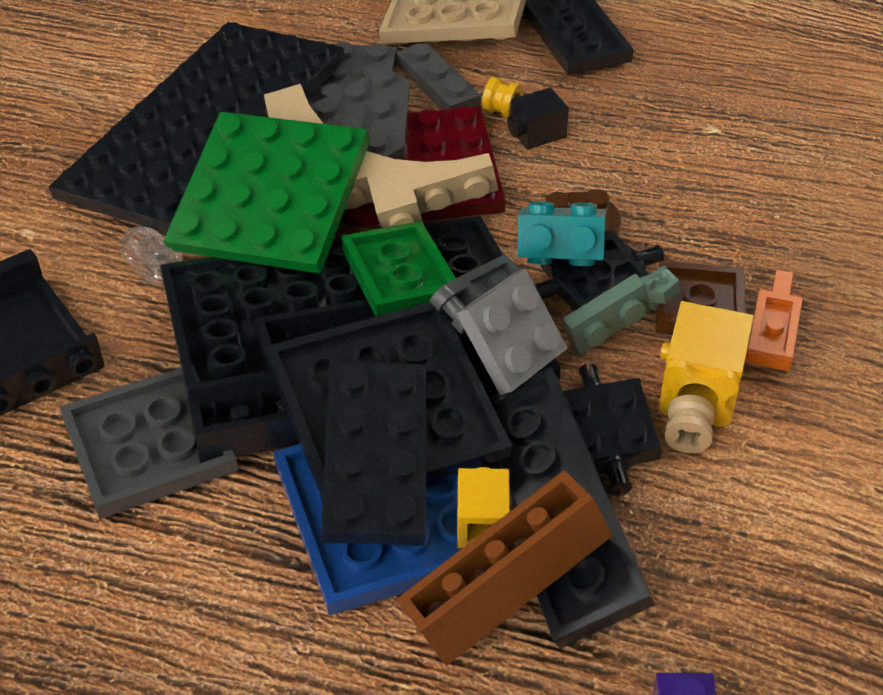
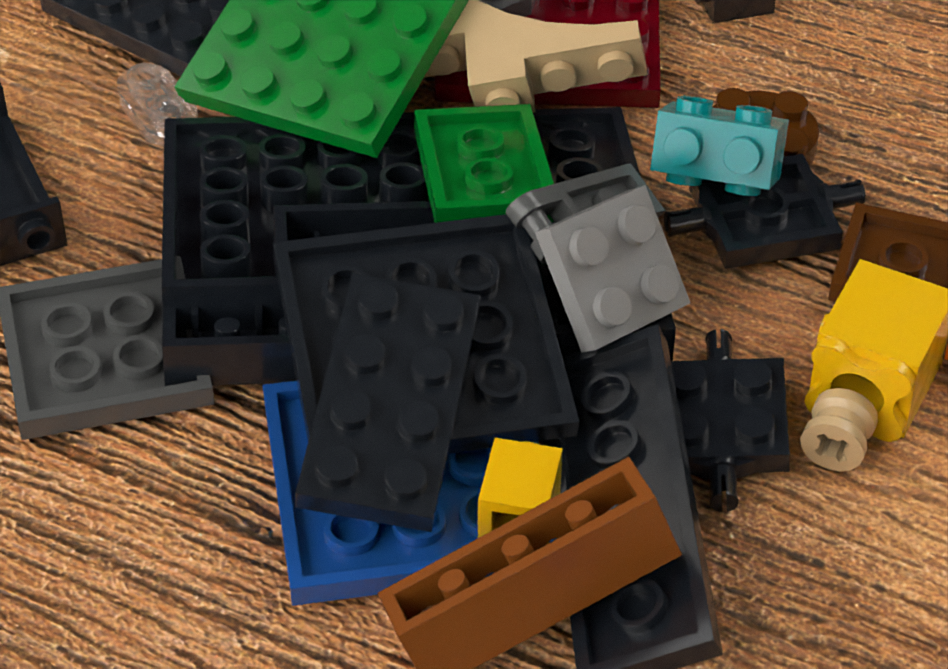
camera: 10 degrees right, 0 degrees up
(619, 308) = (778, 259): sand green hinge -> none

